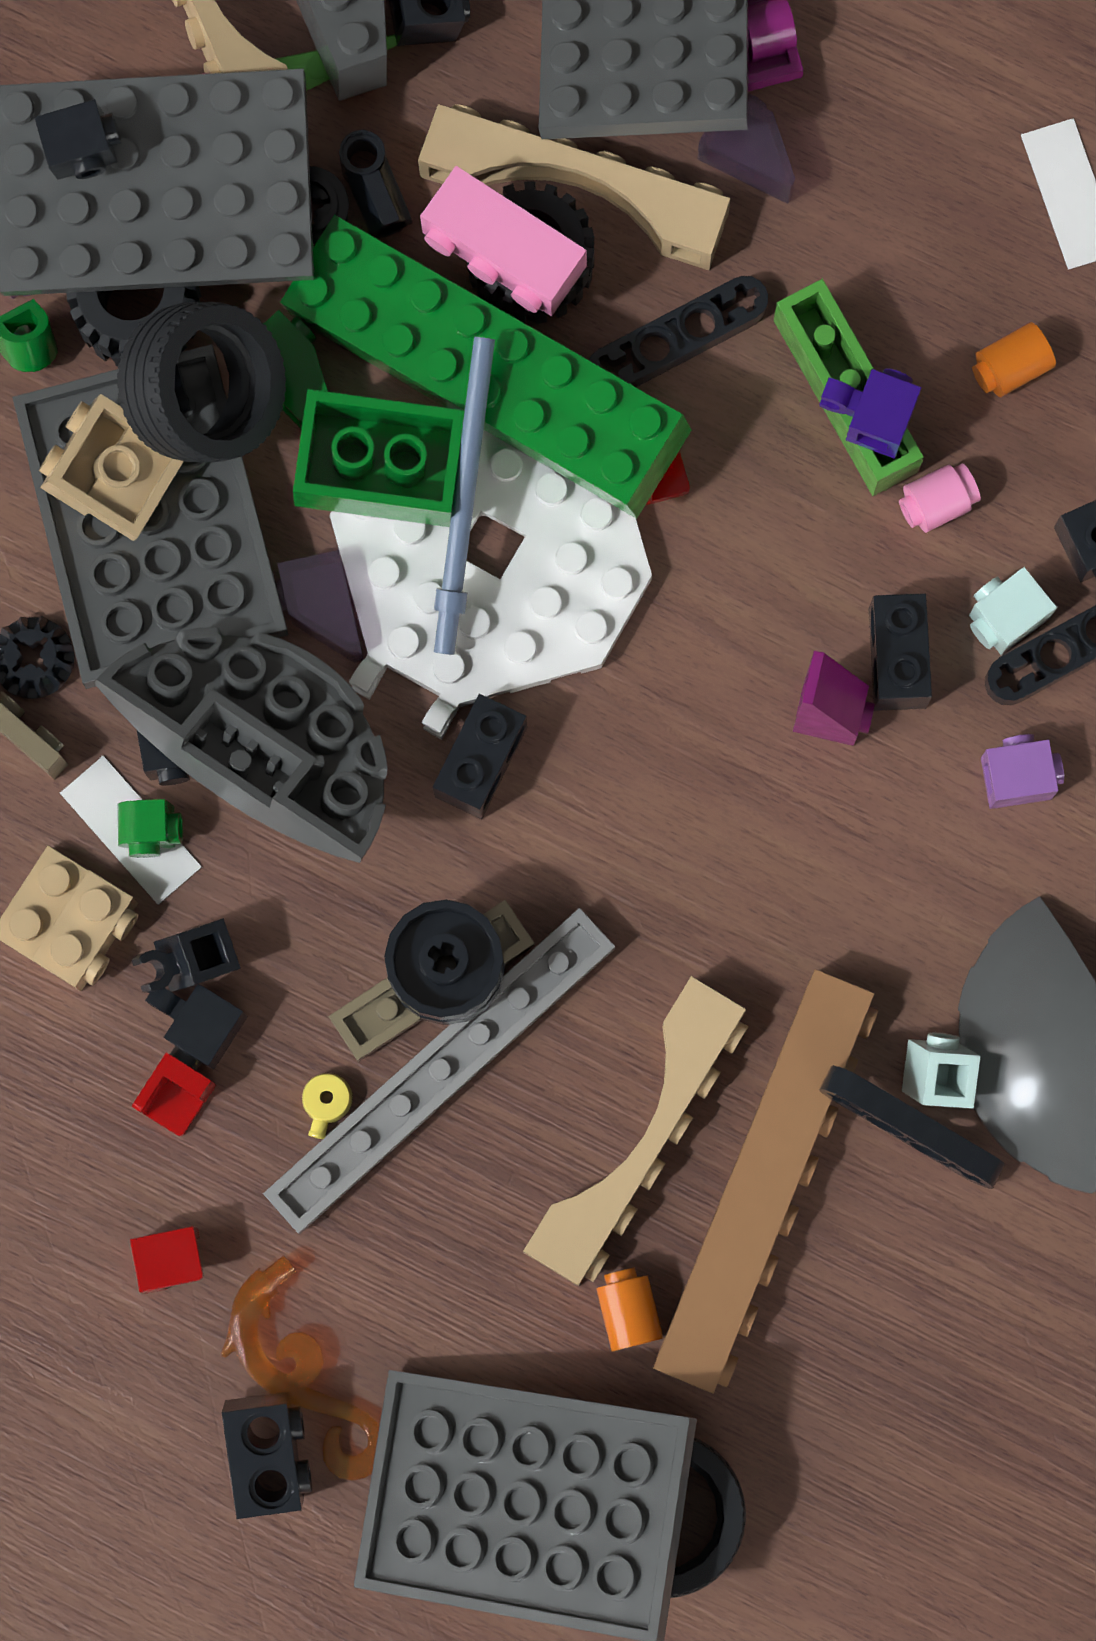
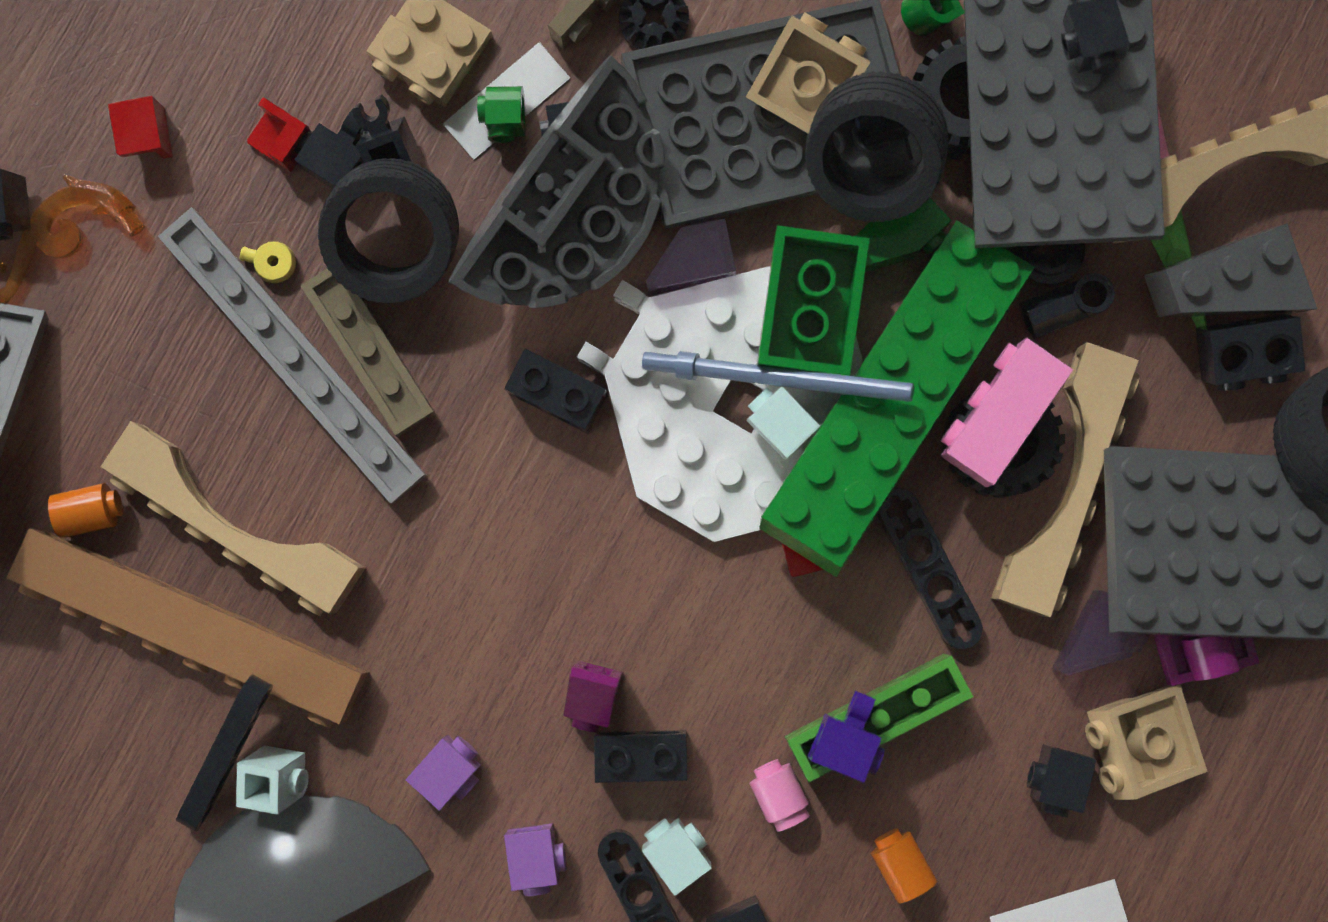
camera: 90 degrees right, 5 degrees up
(353, 942) = (375, 280): none -> black tyre
(438, 931) = (348, 342): black wheel -> none
(515, 491) = (781, 421): none -> light aqua brick
(868, 99) = (1145, 743): none -> tan plate
(912, 189) = (1061, 780): none -> black brick
(925, 874) = (446, 772): none -> medium lavender brick

